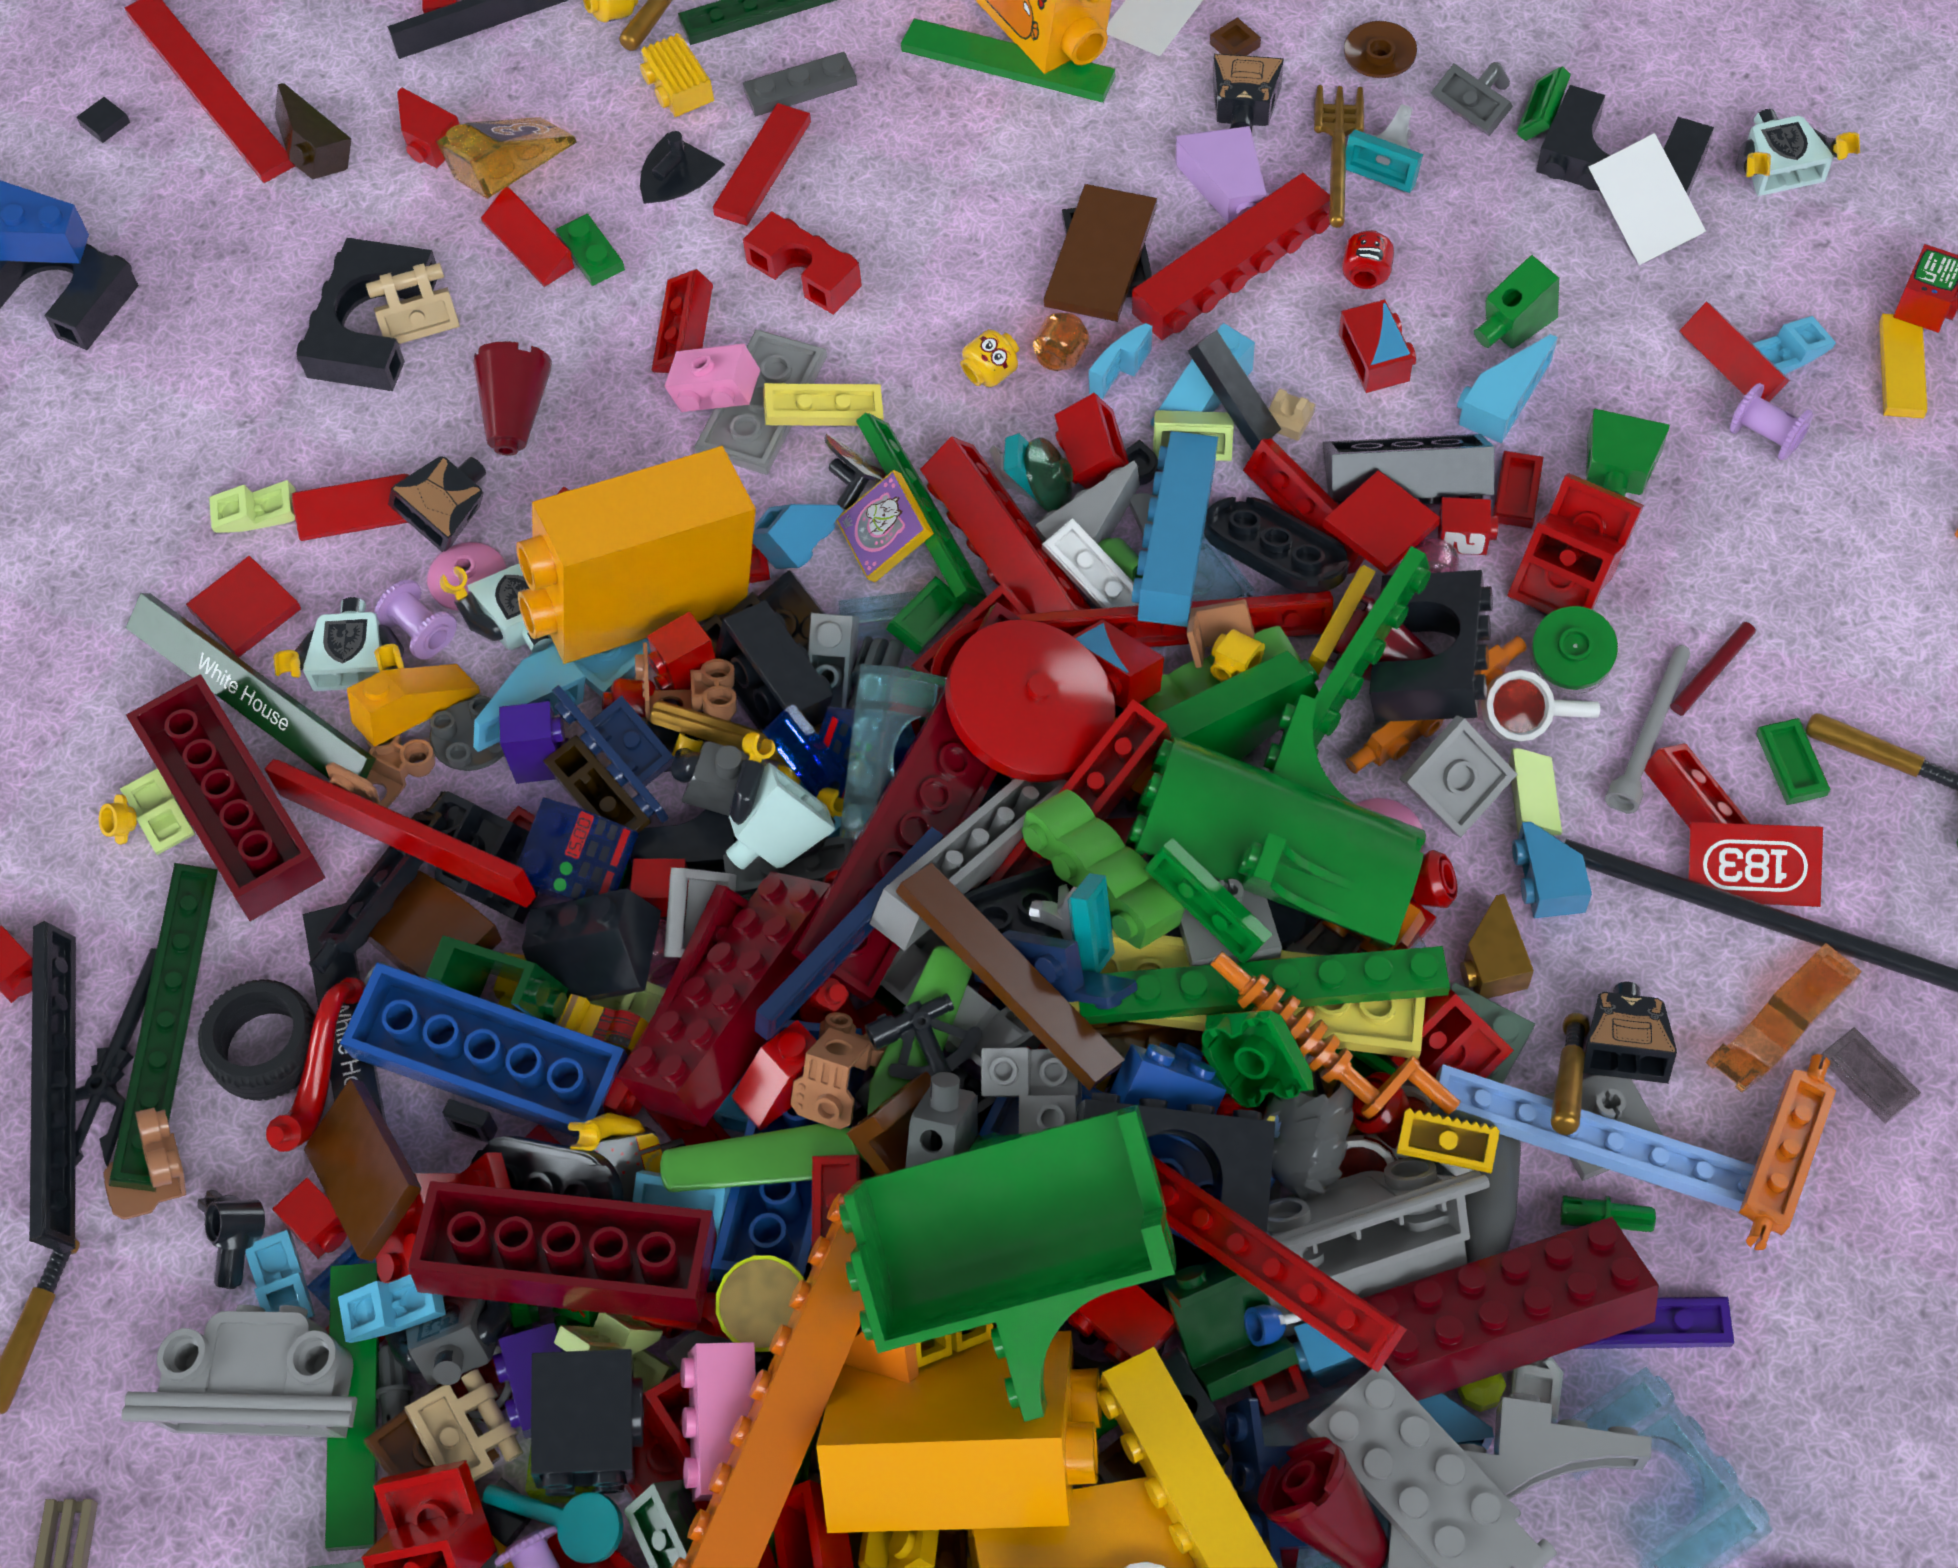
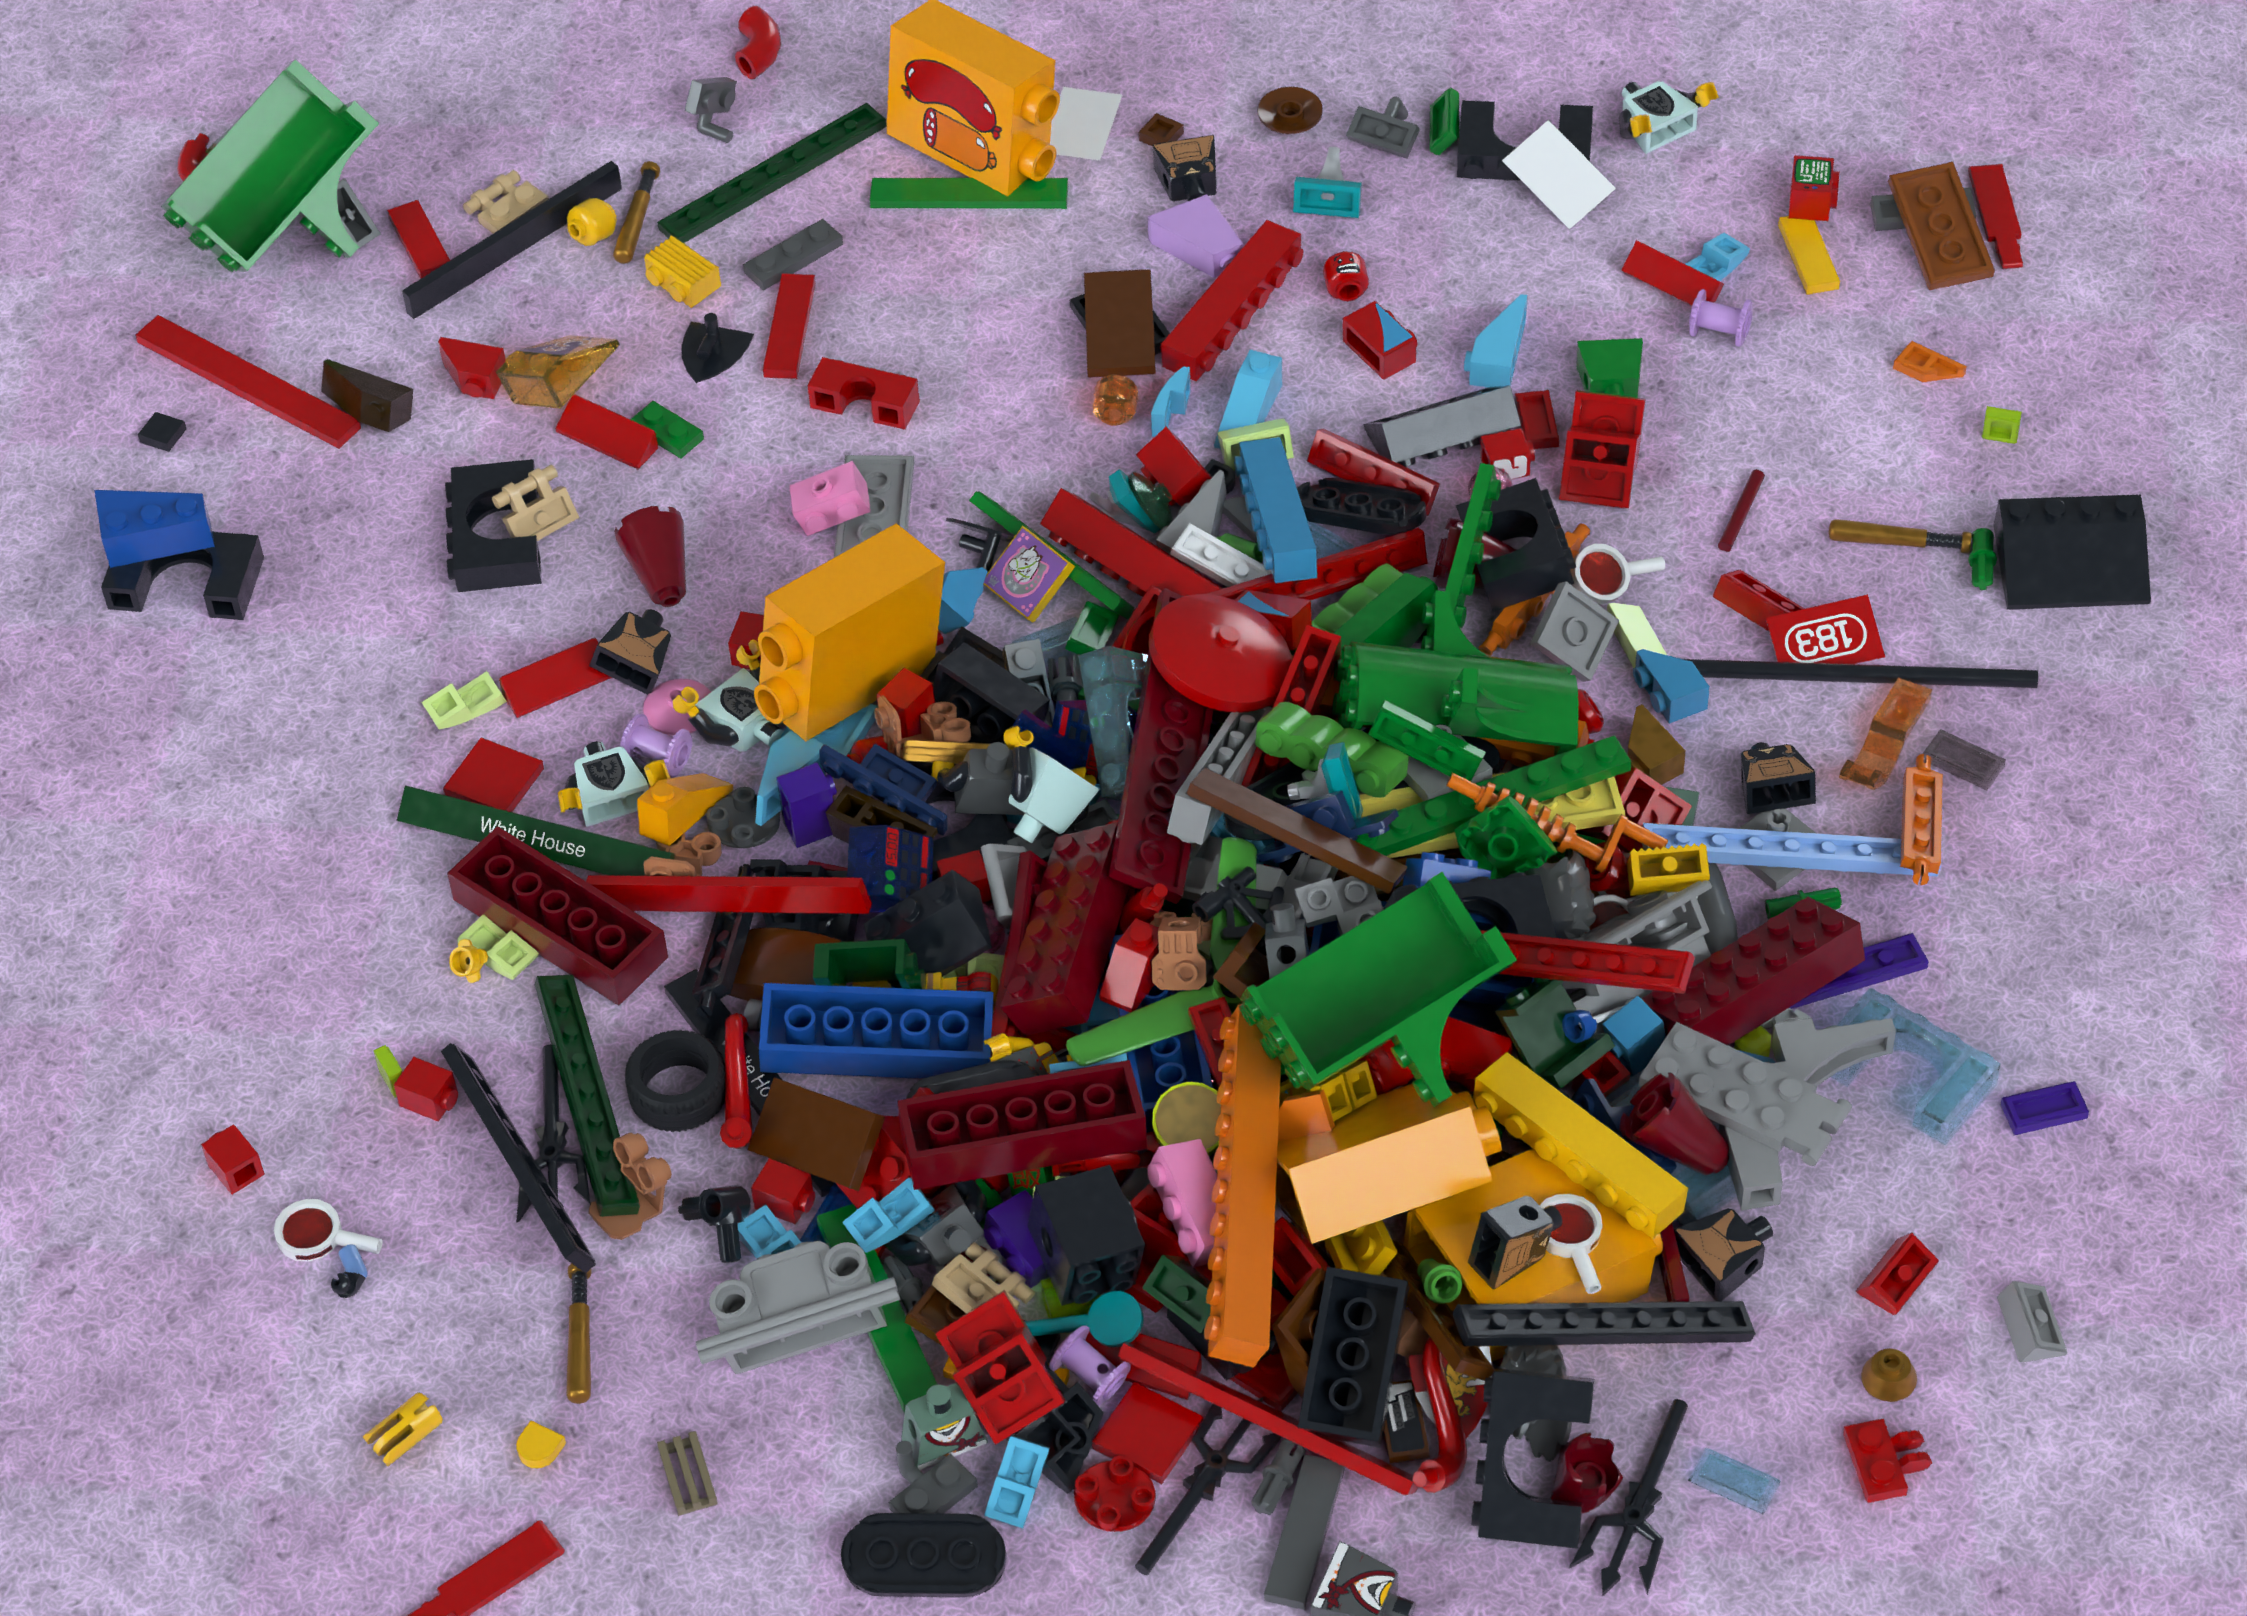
camera: 20 degrees left, 10 degrees down
(469, 1120) = (880, 1088): black tile -> none
(682, 318) = (774, 465): red slope -> none
(820, 403) = (930, 496): light yellow plate -> none
(833, 949) = (1147, 855): dark blue tile -> none
(990, 358) = (1060, 427): yellow head -> none
(1211, 621) = (1343, 571): nougat bracket -> none
(1234, 389) = (1280, 397): black tile -> none
(1235, 654) = (1363, 587): yellow plate -> none
(1291, 413) = (1327, 410): tan tile -> none
(1338, 121) = (1280, 176): pearl gold piece -> none
(1340, 618) = (1436, 540): yellow tile -> none
(1381, 522) = (1440, 464): red tile -> none
(1520, 305) = (1487, 278): green torso -> none
(1568, 1090) = (1744, 817): pearl gold piece -> none
(1573, 650) = (1628, 521): green piece -> none
(1626, 791) = (1707, 612): light grey piece -> none
(1793, 761) = (1827, 560): green tile -> none

